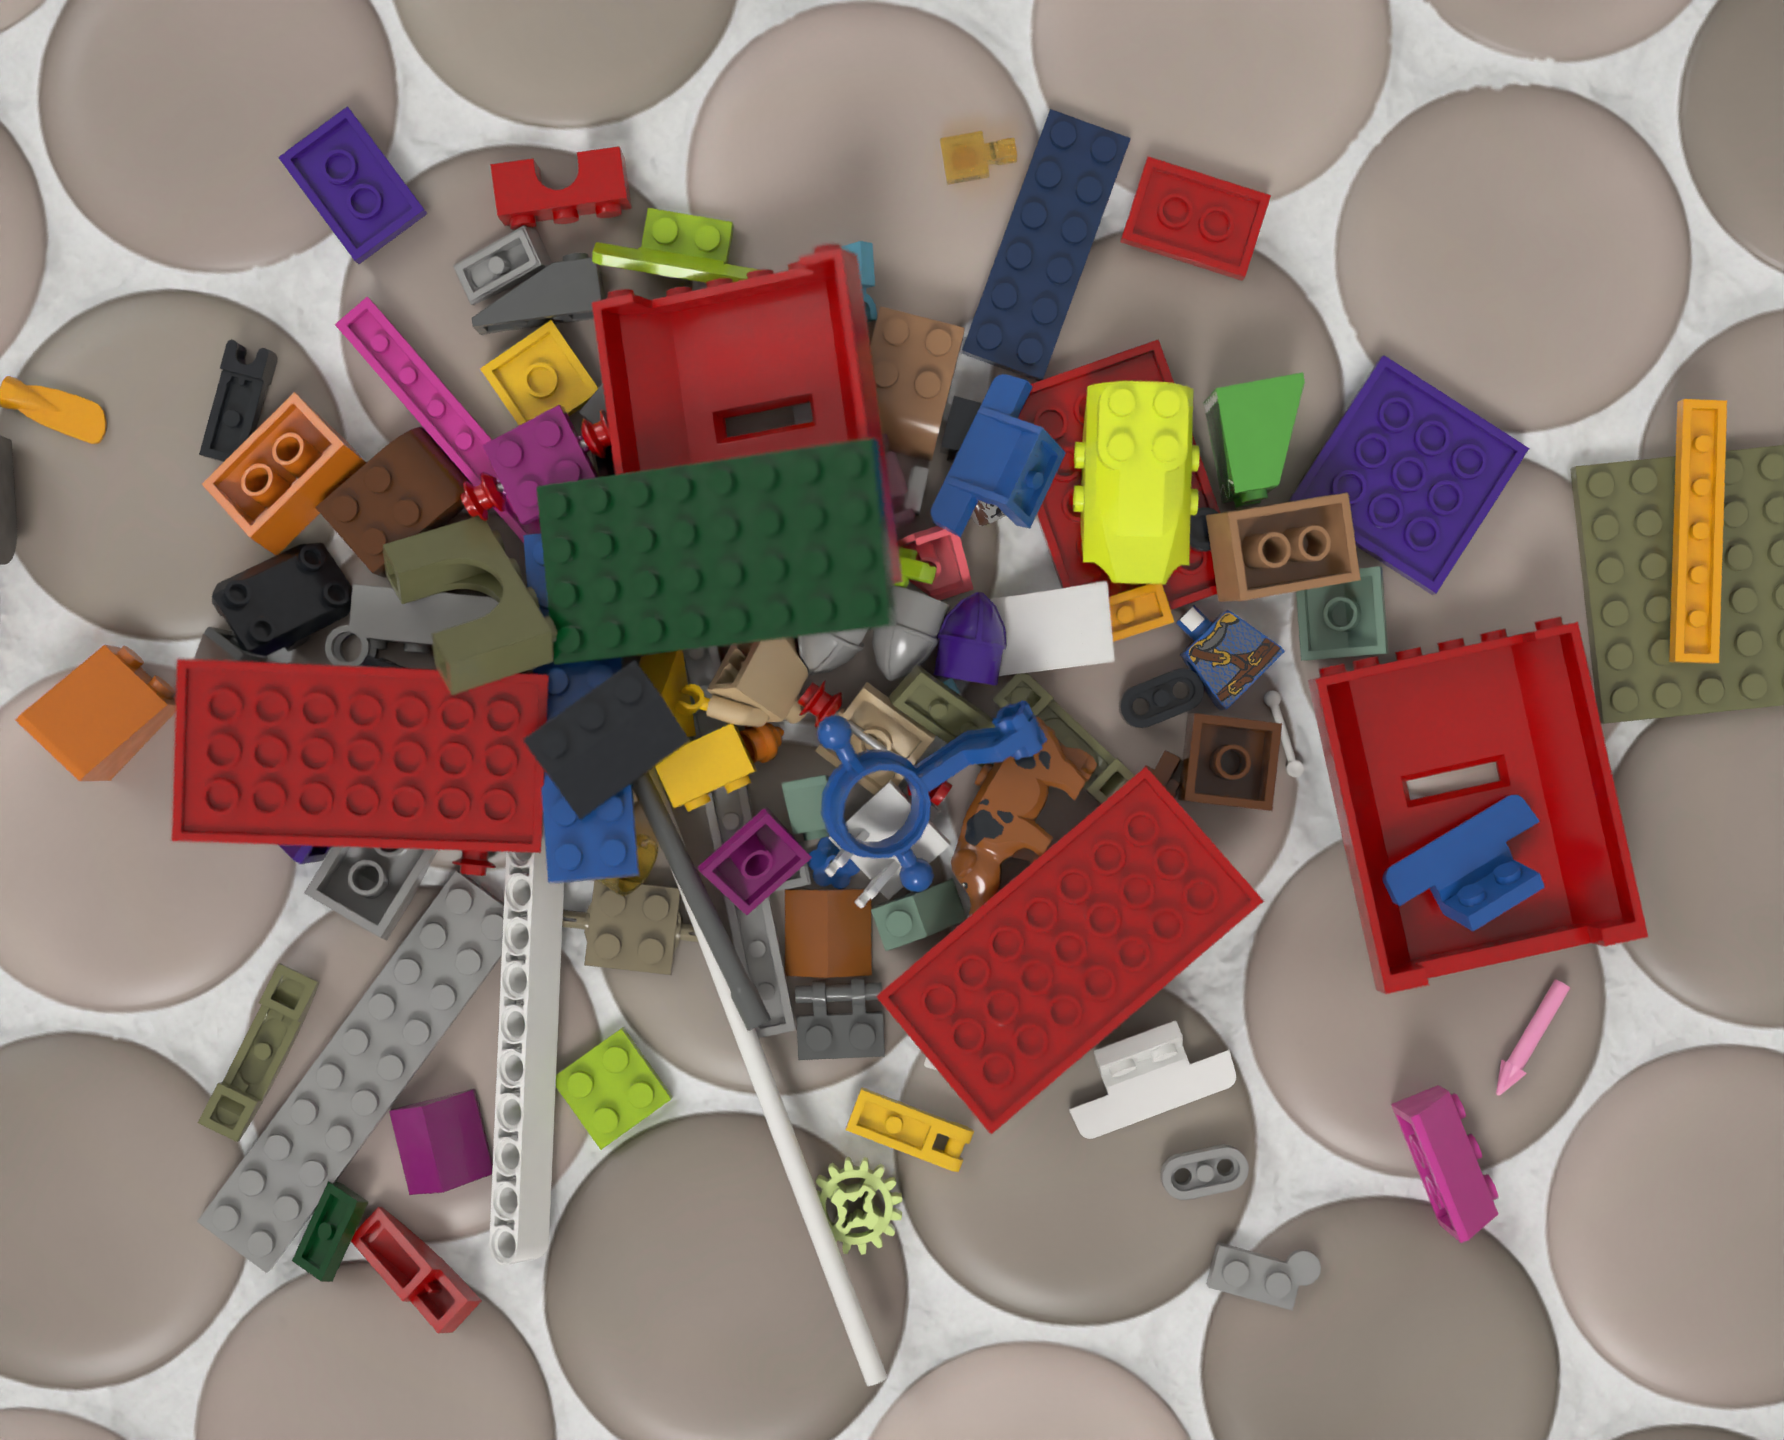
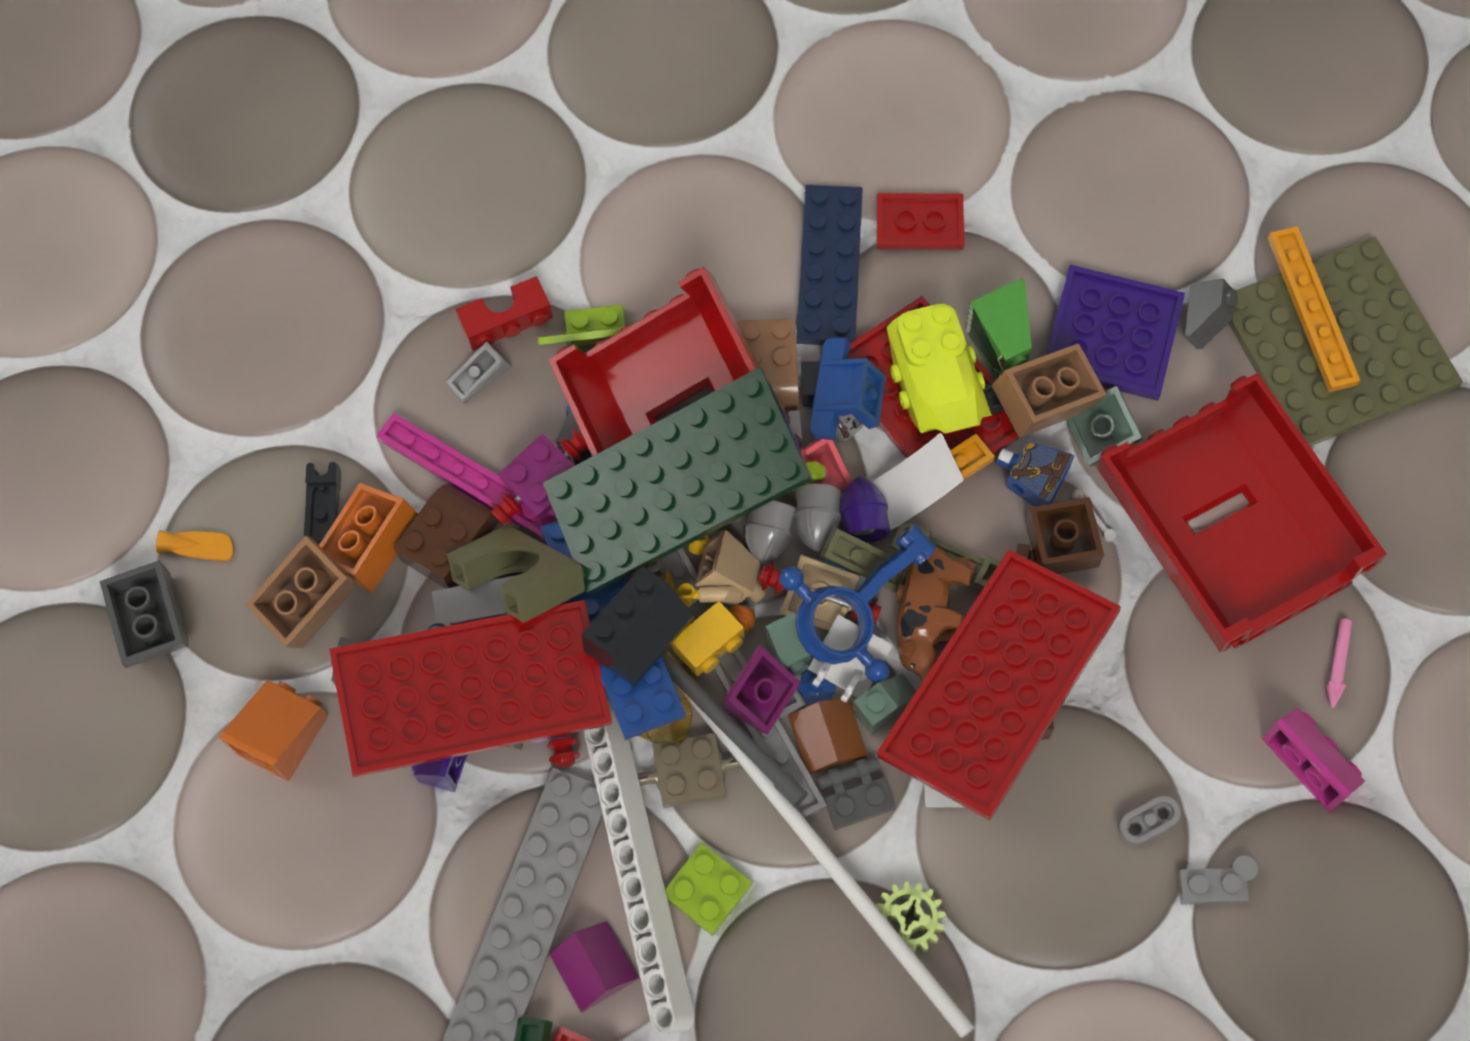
camera: 10 degrees left, 20 degrees down
(172, 539) = (301, 594): none -> medium nougat brick
(261, 1053) = (446, 935): olive slope -> none
(284, 599) = (387, 612): black shield -> none
(352, 185) = (366, 351): dark purple plate -> none
(370, 884) = (495, 785): light grey slope -> none
(540, 375) = (519, 427): yellow plate -> none
(555, 293) = (515, 381): dark grey slope -> none
(908, 1129) = (929, 853): yellow plate -> none
(968, 156) = (764, 225): clear yellow plate -> none
(1148, 1078) = (1085, 767): white plate -> none
(1160, 698) = (1002, 515): black plate -> none
(1471, 867) = (1250, 553): blue plate -> none
(1552, 487) = (1209, 310): none -> dark grey slope

